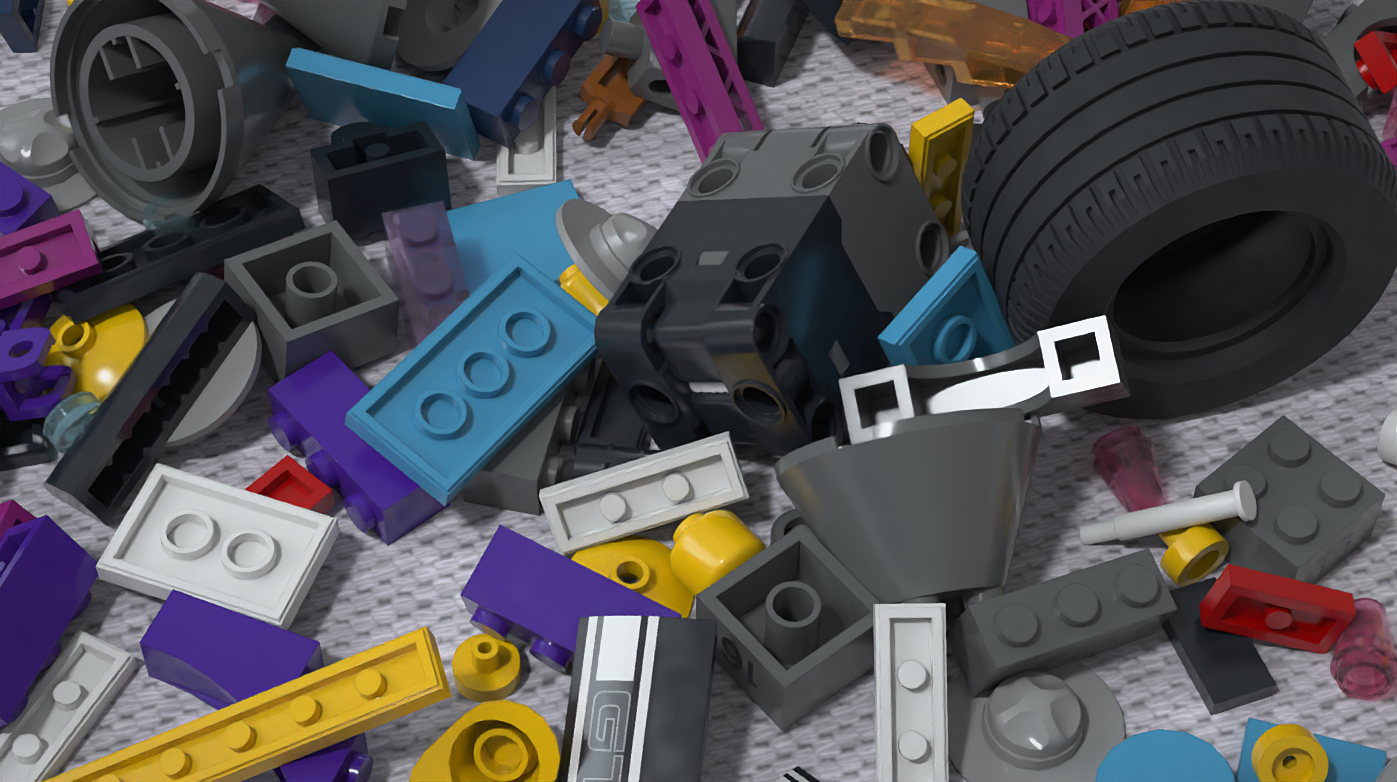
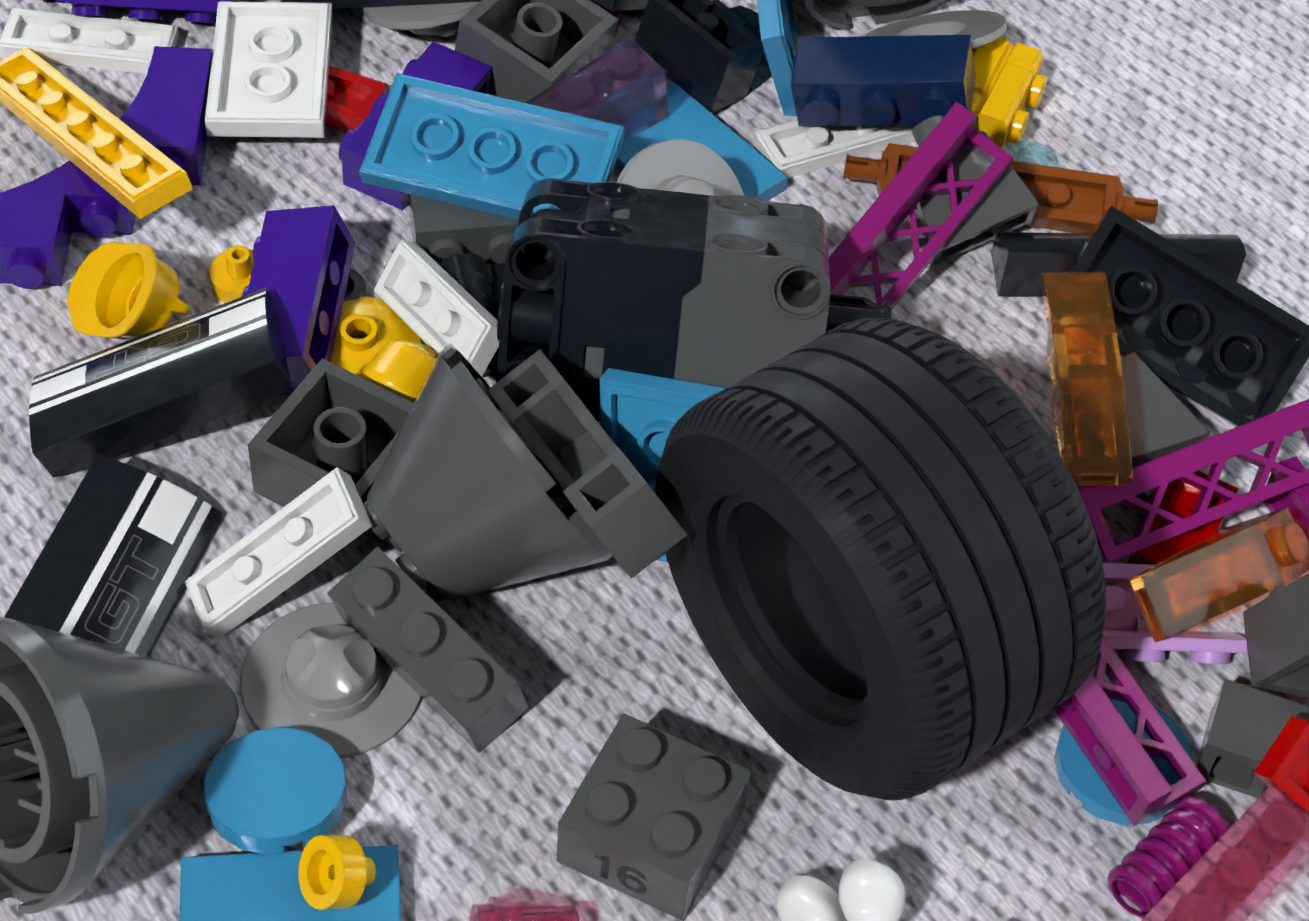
camera: 65 degrees right, 0 degrees up
(1129, 468) = (651, 680): clear pink cone -> none
(1175, 516) = (601, 741): white piece -> none
(1192, 553) = (570, 748): yellow tile -> none
(1219, 663) = (478, 802): black tile -> none
(1277, 609) = (514, 801): red plate -> none

